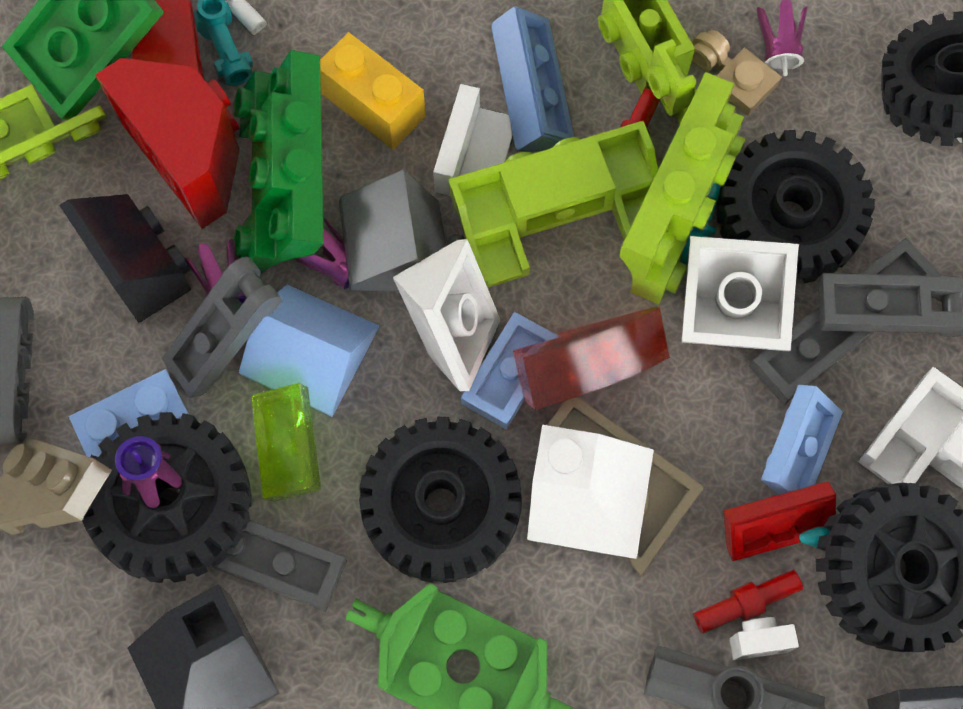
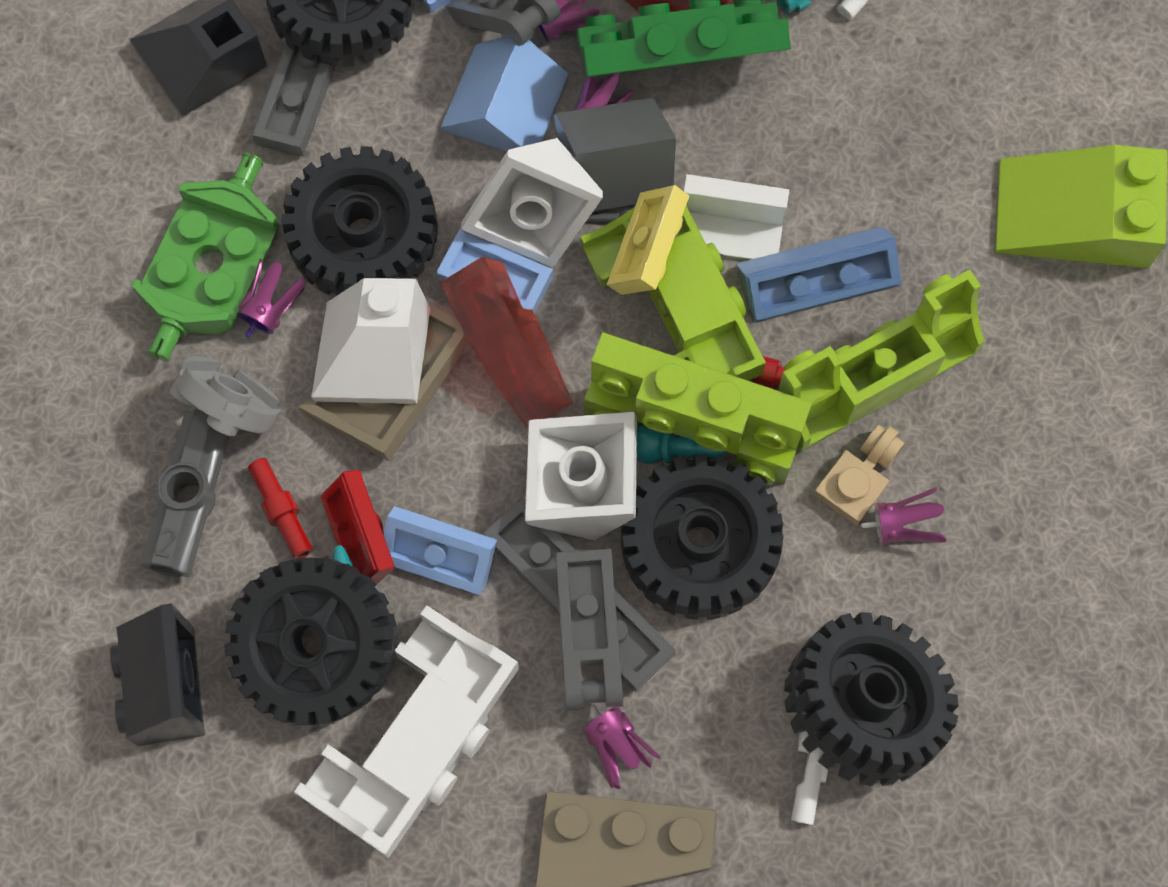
camera: 85 degrees right, 0 degrees up
(285, 442) = (406, 87): clear neon green plate -> none
(371, 91) = (777, 114): yellow brick -> none
(518, 201) = (648, 240): none -> light yellow plate
(526, 605) = (256, 307): none -> flat silver piece
(640, 643) = (228, 400): none -> light grey plate
(763, 638) = (240, 517): white plate -> none

